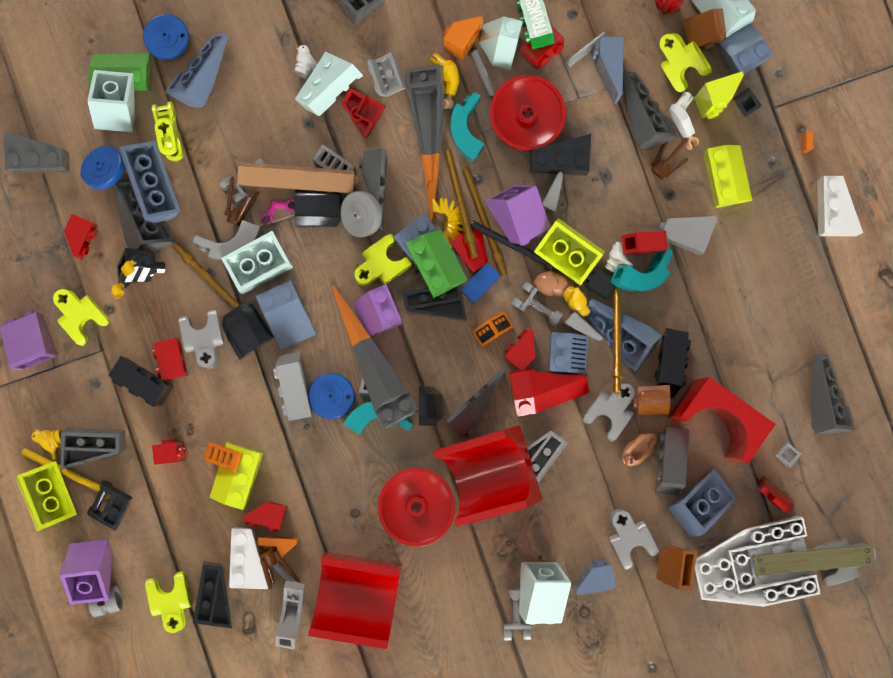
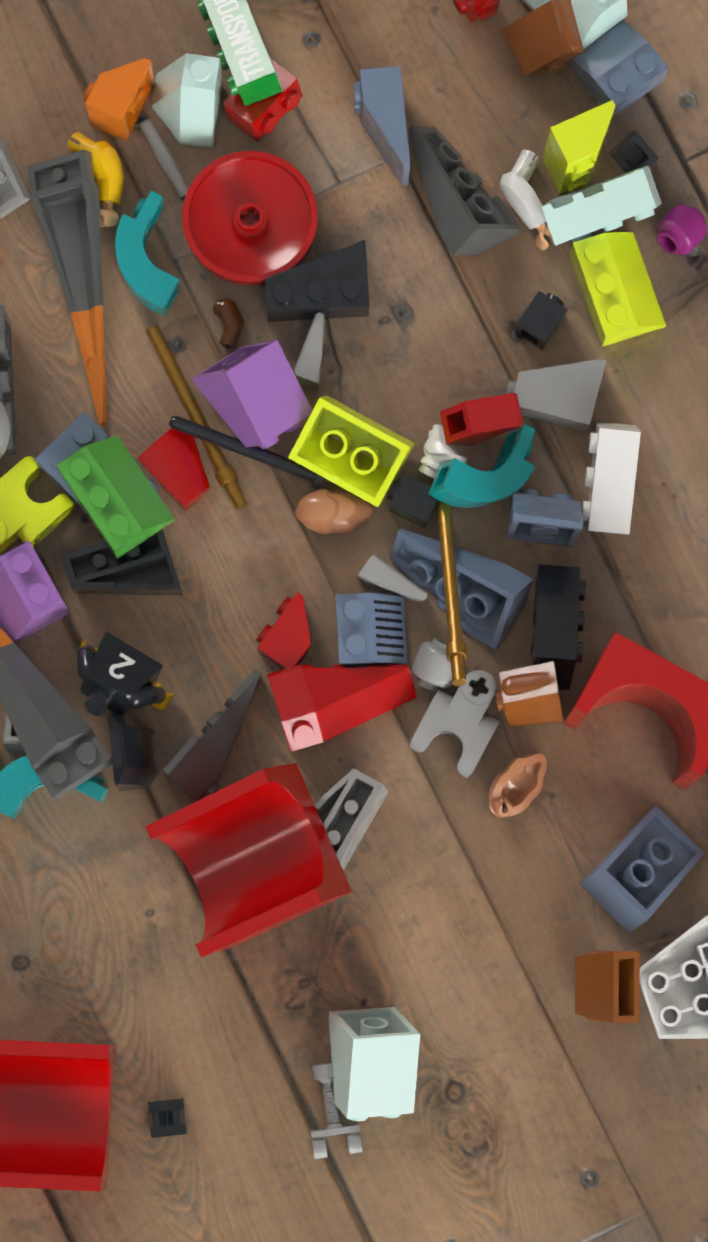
camera: 10 degrees left, 5 degrees down
(416, 507) = (128, 935): red dish -> none
(426, 364) = (119, 677): none -> black torso
(426, 607) = (167, 1118): none -> black tile
(451, 217) = (136, 416): yellow hair -> none
(469, 237) = (170, 445): pearl gold bar -> none
(480, 283) = (201, 525): blue tile -> none
(492, 329) = (231, 603): slope -> none
(511, 170) = (233, 320): none -> reddish brown arm
(554, 317) = (338, 569): light grey bar -> none
(576, 300) = (375, 535): yellow animal -> none
(584, 50) = (335, 103): light grey piece -> none
(595, 578) = (466, 1022): sand blue slope -> none
(601, 376) = (432, 665): none -> light grey head
(628, 536) = (518, 942): light grey piece -> none
(661, 168) = (498, 287): reddish brown plant -> none
(672, 461) = (577, 799): dark grey wedge -> none
(673, 303) = (544, 519): none -> sand blue slope
(680, 58) = (507, 93): neon yellow piece -> none
(683, 189) = (541, 319): none -> black brick
(712, 283) = (611, 477): none -> white wedge
(726, 129) = (602, 206): none -> light aqua wedge
(768, 147) = (681, 230): none -> magenta head

